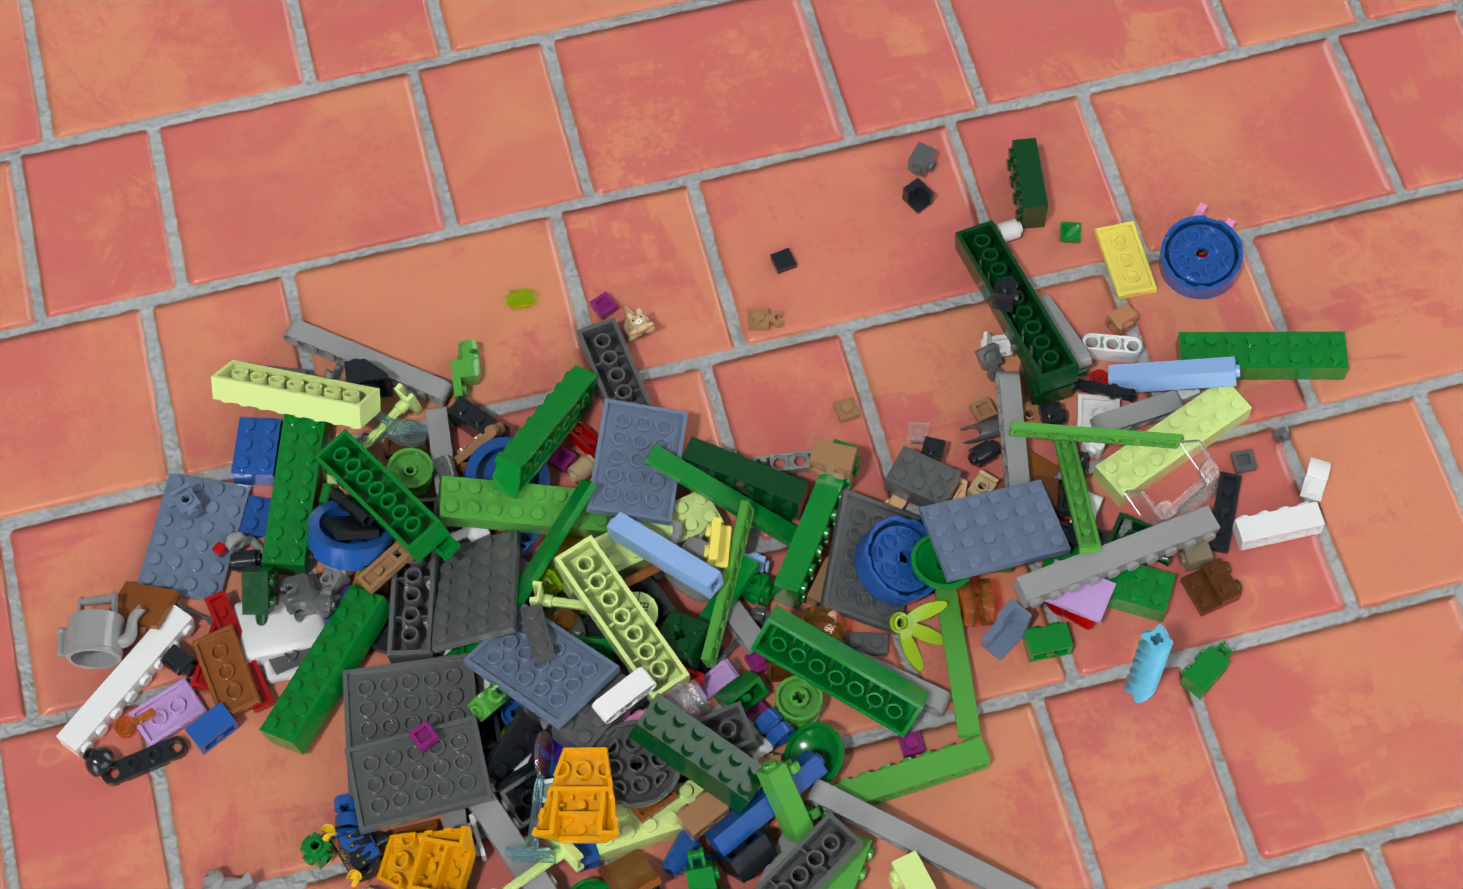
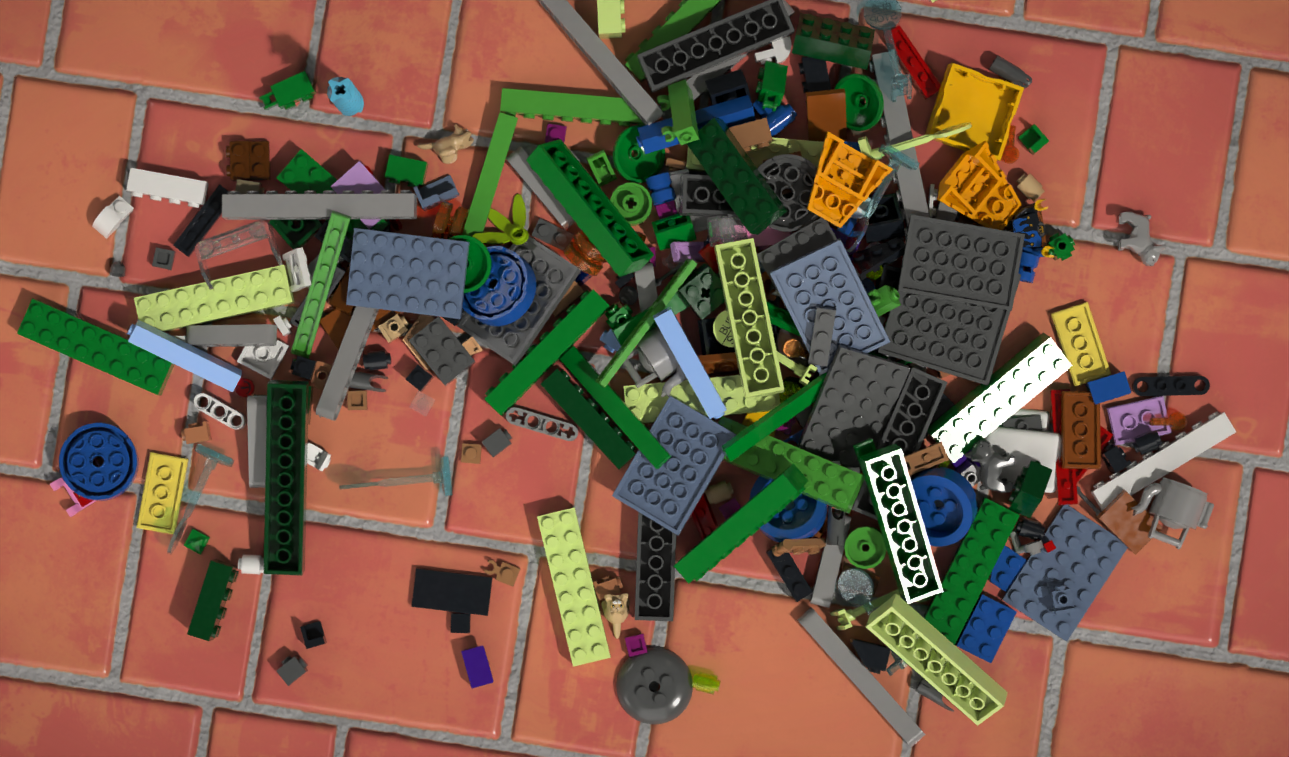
camera: 160 degrees left, 25 degrees up
(98, 760) = (1207, 398): black brick -> none
(150, 689) = (1147, 442): none -> black brick
(258, 764) = (1081, 343): none -> light yellow tile
(324, 496) = (943, 560): green tile -> none
(347, 503) = (929, 524): black pin -> none
(349, 529) = (937, 504): black tile -> none
(423, 736) = (946, 287): magenta plate -> none
(466, 369) = (779, 631): bright green plate -> none
(569, 296) = (674, 682): none -> dark grey brick
(624, 695) = (775, 246): white beam -> none
(655, 342) = (608, 586): none -> nougat brick
(689, 330) = (574, 586): none -> yellowish green brick
(718, 544) = (642, 351): light yellow bracket -> none
(749, 226) = (477, 666): none -> dark purple panel
(804, 283) = (452, 592): none -> black tile
(826, 425) = (497, 442): none -> dark grey brick
(832, 459) = (512, 391): medium nougat brick -> none
(850, 728) = (601, 168): none -> bright green slope
(936, 335) = (442, 477): none -> clear light blue piece
(989, 359) = (330, 442): dark grey plate -> none
(1005, 295) = (294, 479): black brick -> none
(1016, 681) = (448, 146): none -> tan animal
(1094, 305) = (212, 459): none -> clear light blue piece
(1094, 435) = (281, 322): bright green tile -> none
(1110, 502) = (297, 269): none -> white plate
(1111, 391) = (241, 365): black pin -> none

